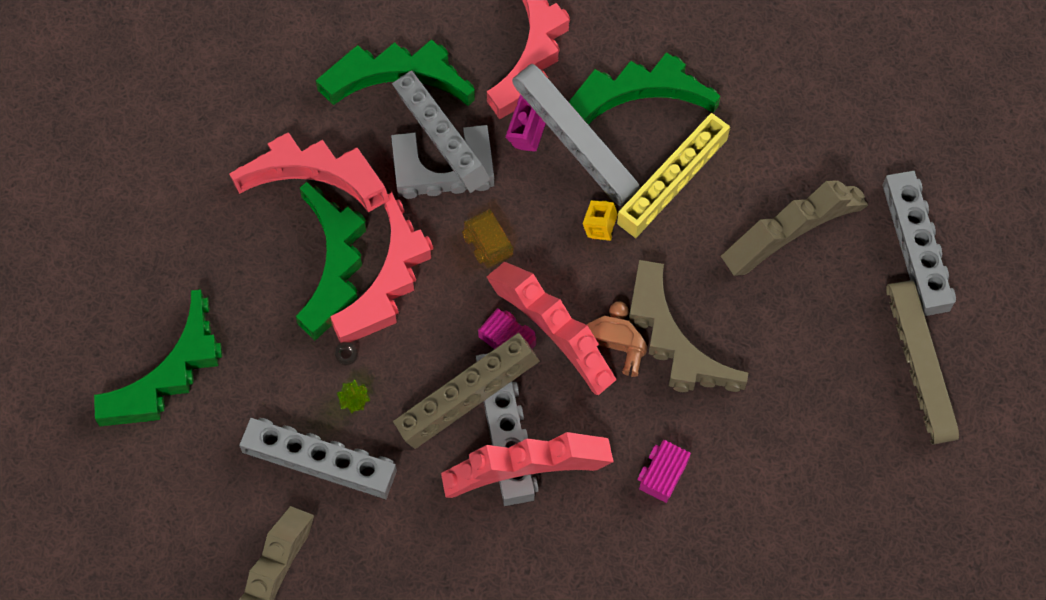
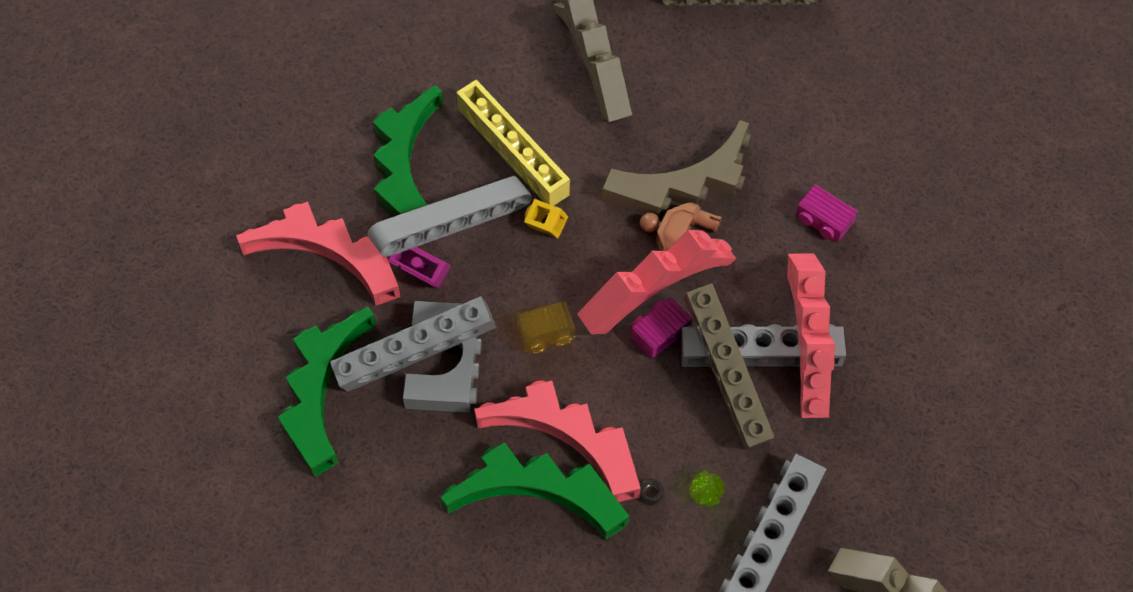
camera: 80 degrees left, 5 degrees down
(317, 163) = (440, 448): coral arch -> none

